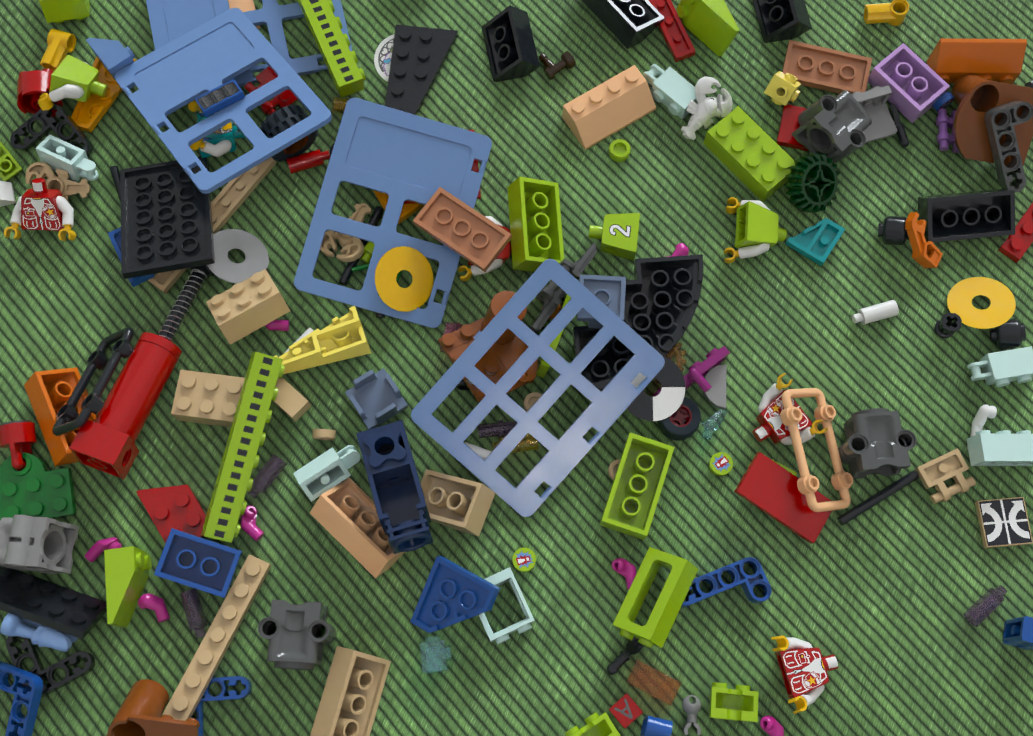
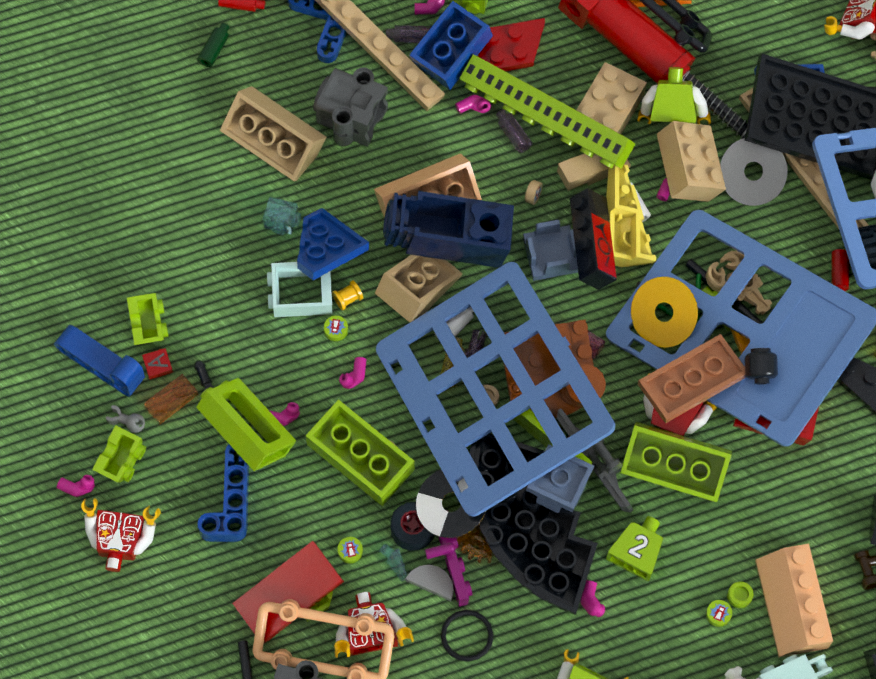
camera: 110 degrees right, 5 degrees down
(194, 337) = (674, 101): none -> lime torso
(326, 471) = (493, 175): light aqua brick -> none
(356, 361) = (593, 239): none -> black brick
(431, 177) = (761, 365): none -> black head
(489, 560) = (347, 295): none -> yellow bush
(563, 523) = (355, 377): none -> dark pink arm
(642, 160) = (719, 613): none -> lime tile
(750, 323) = (461, 657): none -> black piece

